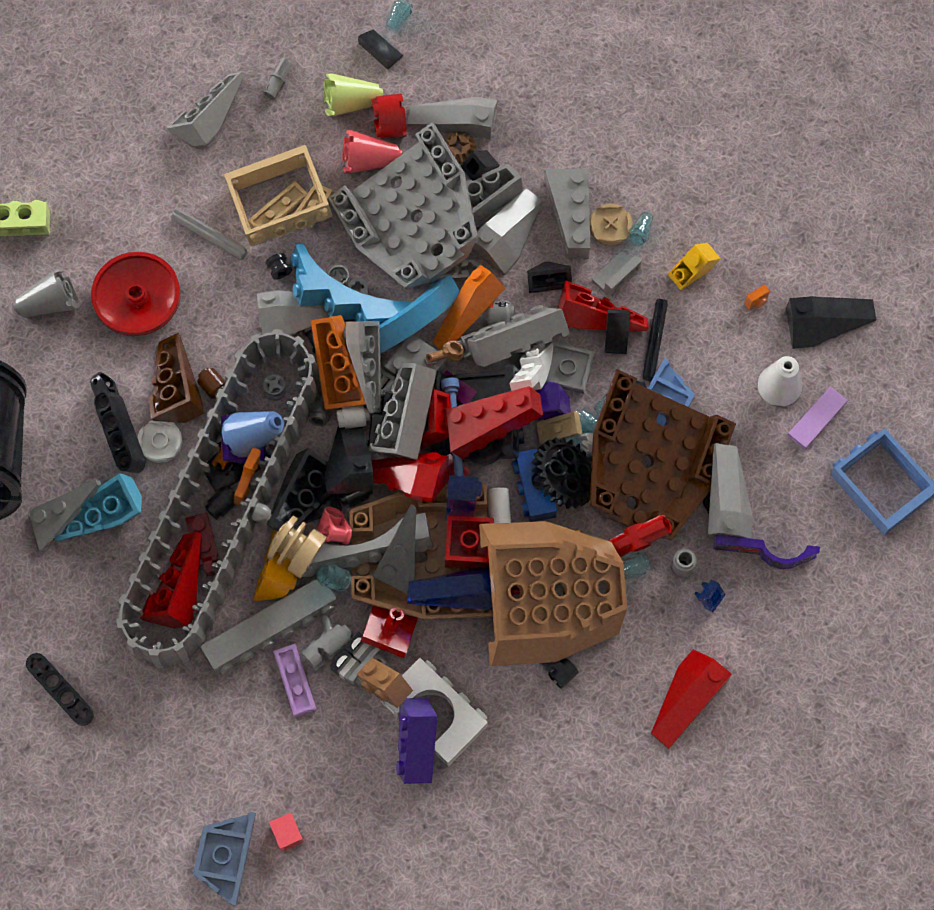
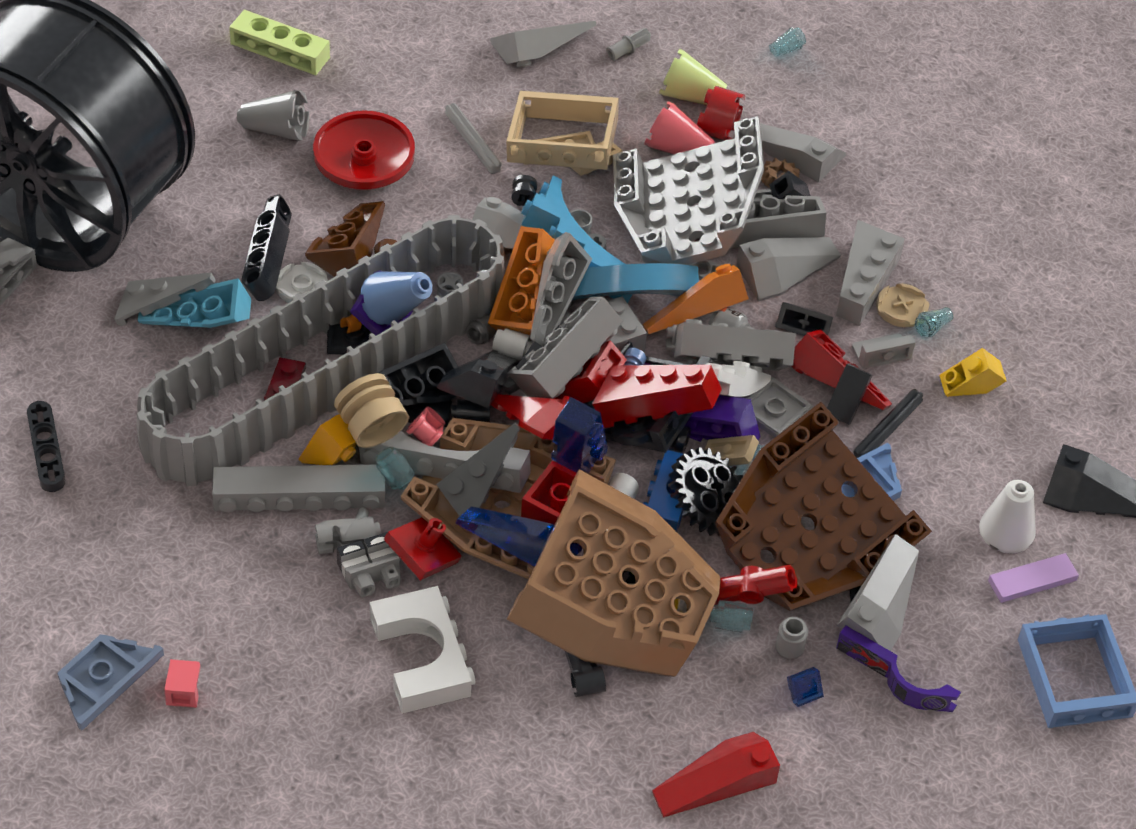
camera: 25 degrees right, 20 degrees down
(177, 592) = (217, 414): red wedge -> none
(221, 502) = (316, 358): black brick -> none
(248, 471) = (373, 323): orange tile -> none
(261, 513) = (355, 369): light grey hinge -> none
(294, 680) = (291, 553): lavender tile -> none
(379, 48) = (749, 63): black slope -> none
(384, 682) = (381, 582): medium nougat brick -> none
(416, 741) = (378, 659): dark purple wedge -> none
(451, 350) = (655, 329): medium nougat plate -> none
(757, 297) = (1028, 434): orange plate -> none

